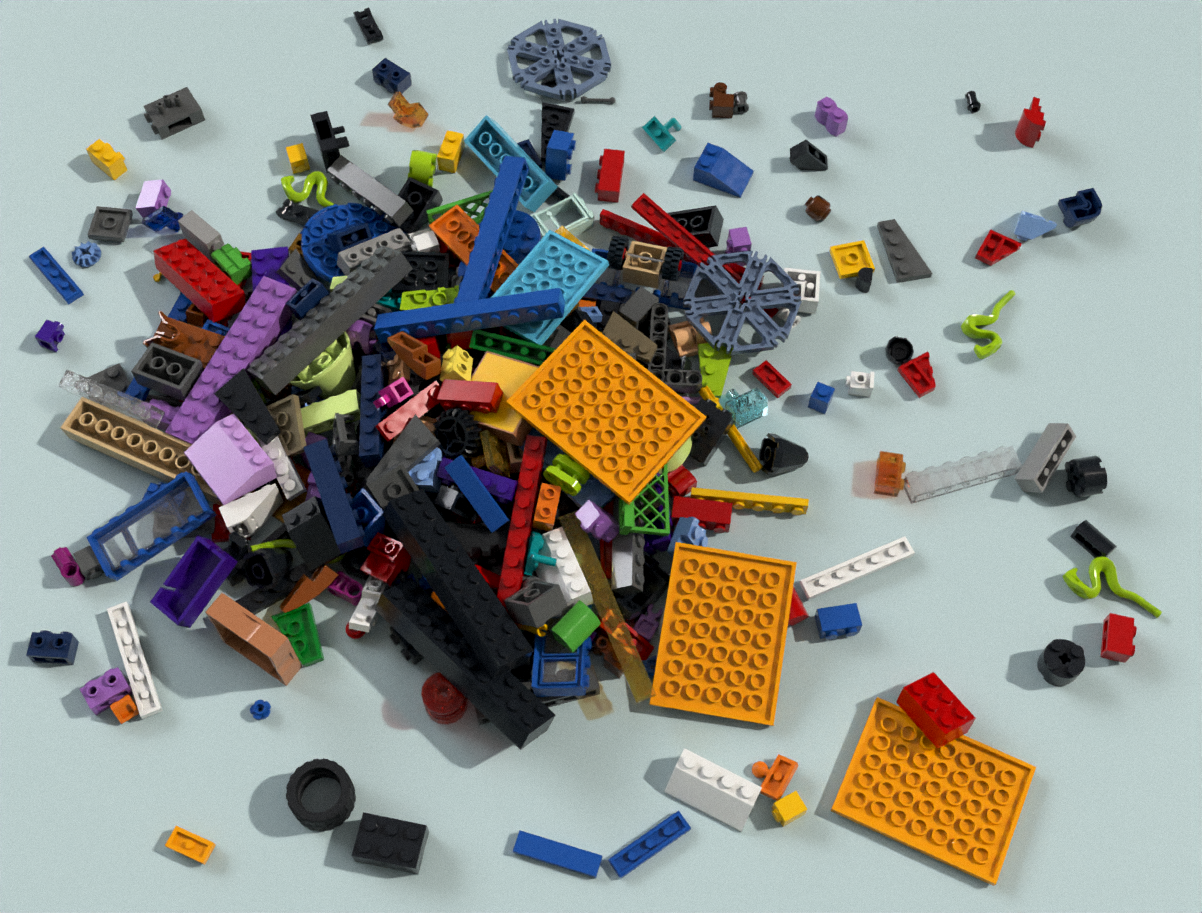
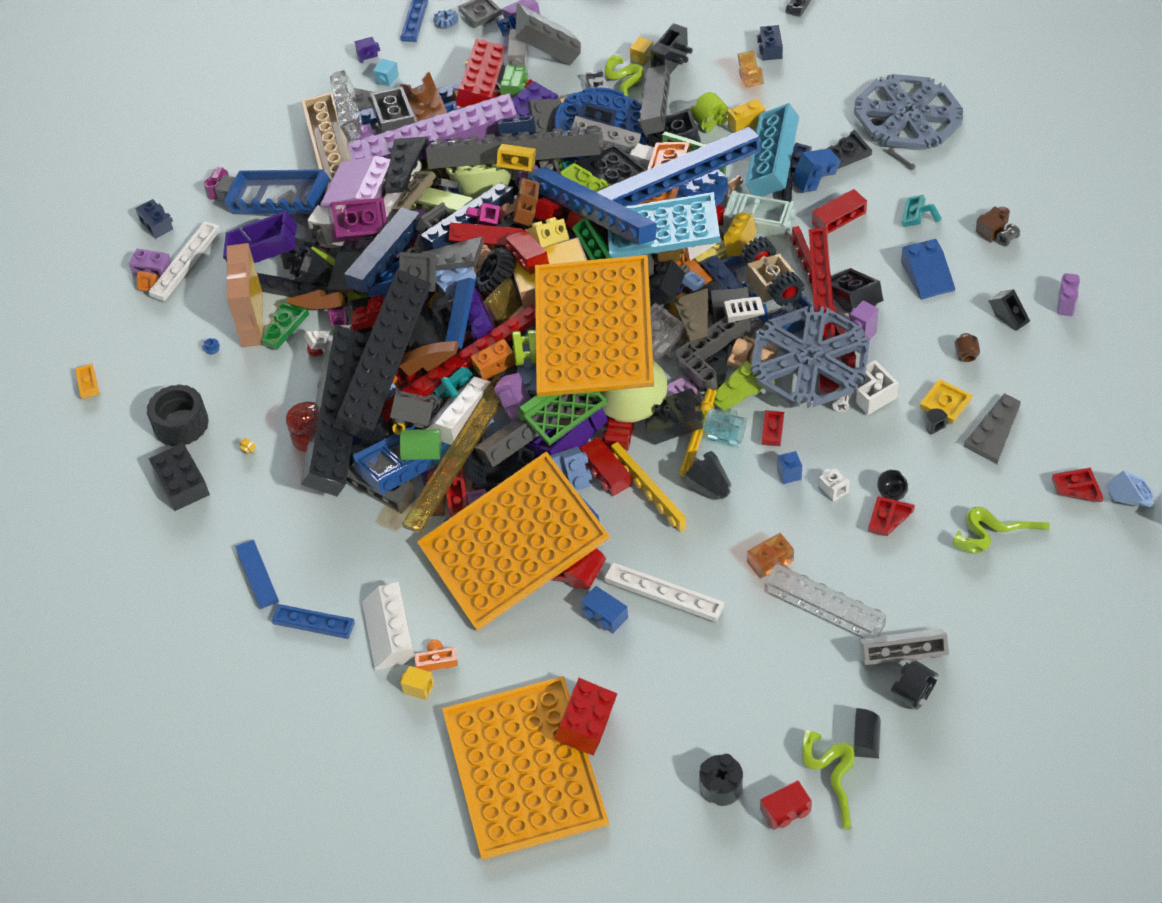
camera: 55 degrees right, 10 degrees down
(97, 342) = (385, 72): none -> medium azure brick
(211, 202) = (546, 35): none -> dark grey slope
(277, 489) = (356, 218): none -> magenta slope
(352, 325) = (516, 157): none -> yellow brick
(409, 762) = (247, 446): none -> yellow plate
(494, 547) = (428, 356): none -> dark orange slope
(655, 316) = (733, 317): none -> white slope

